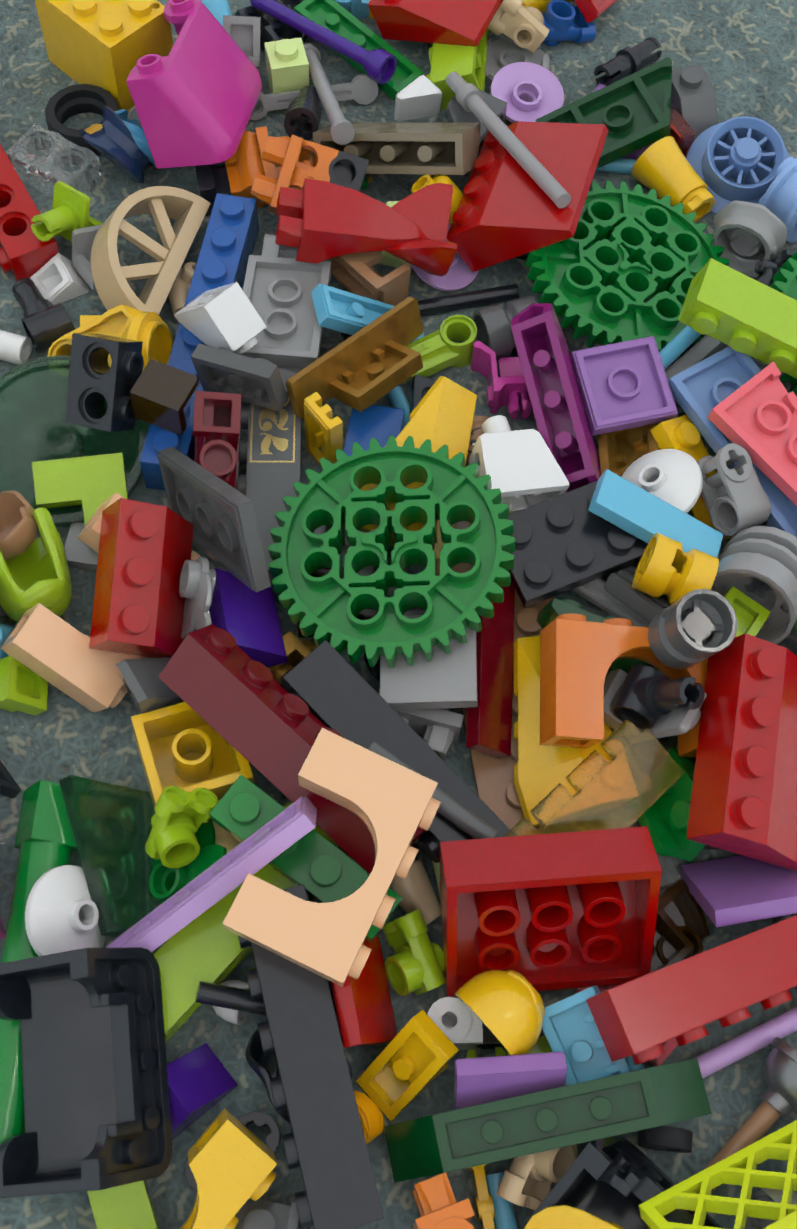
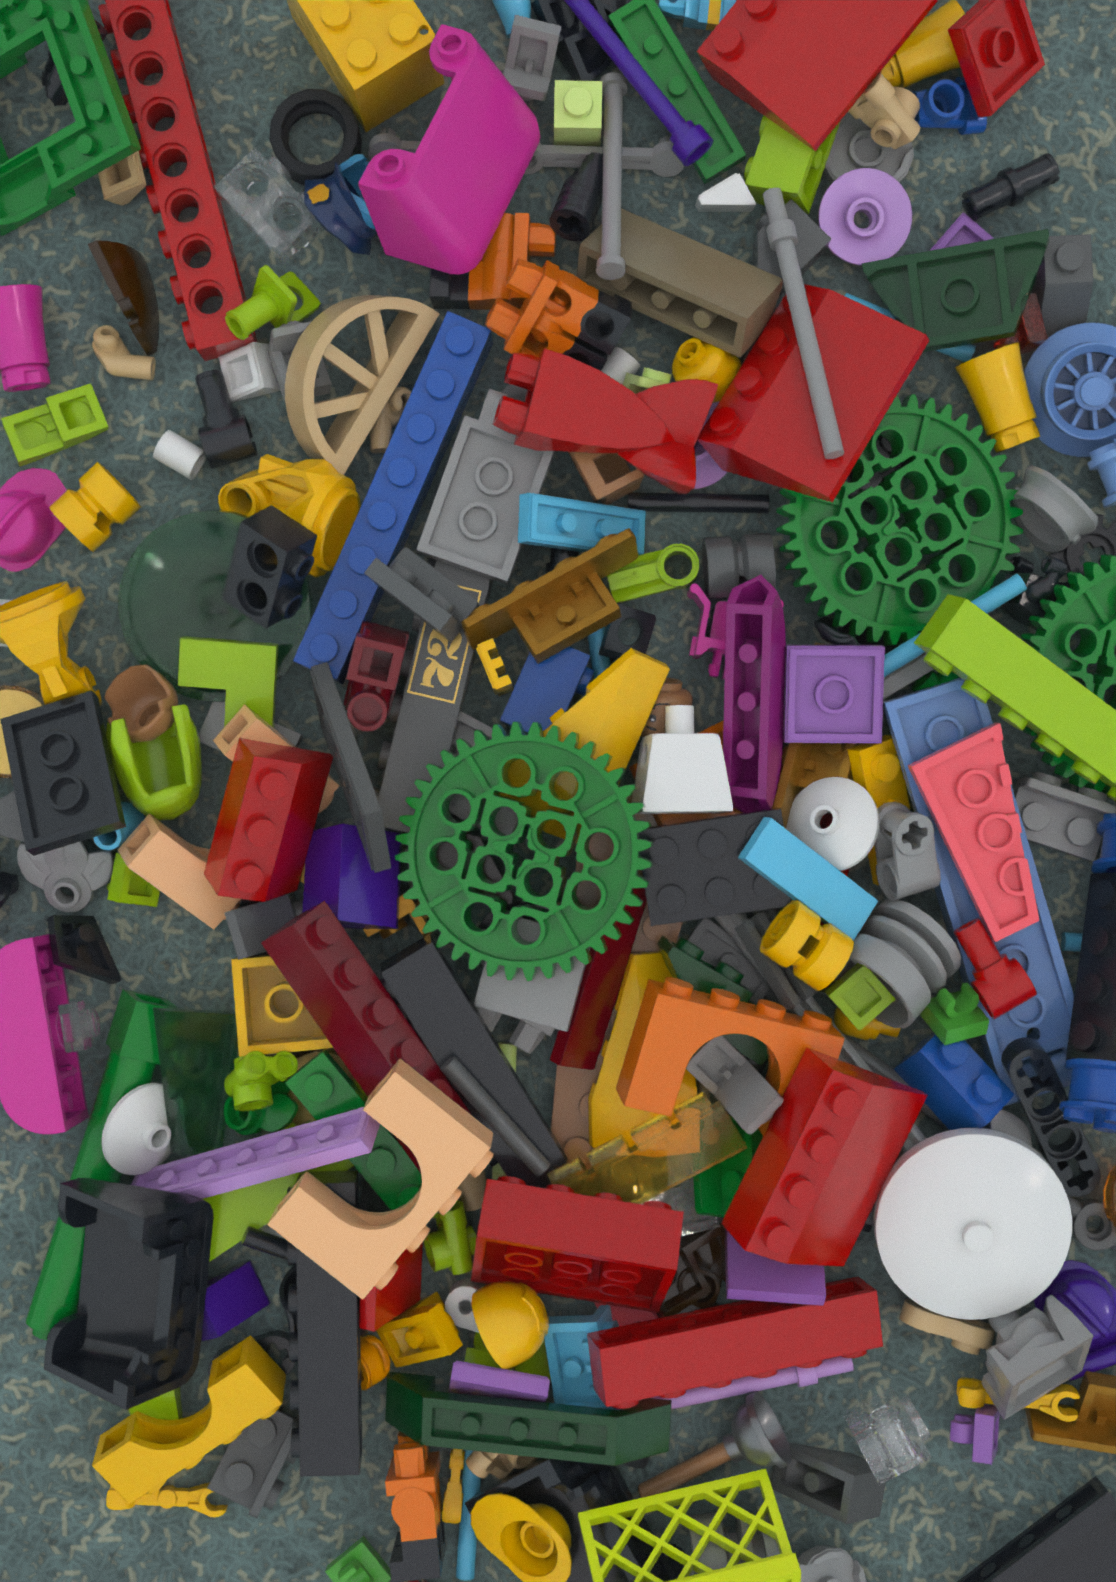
camera: 15 degrees right, 25 degrees up
(162, 395) = (329, 604): dark brown panel -> none
(197, 586) = (318, 844): light grey plate -> none
(223, 319) = (408, 518): white slope -> none
(652, 693) = (732, 1078): black pin -> none
(692, 629) = (787, 1043): dark grey wheel -> none

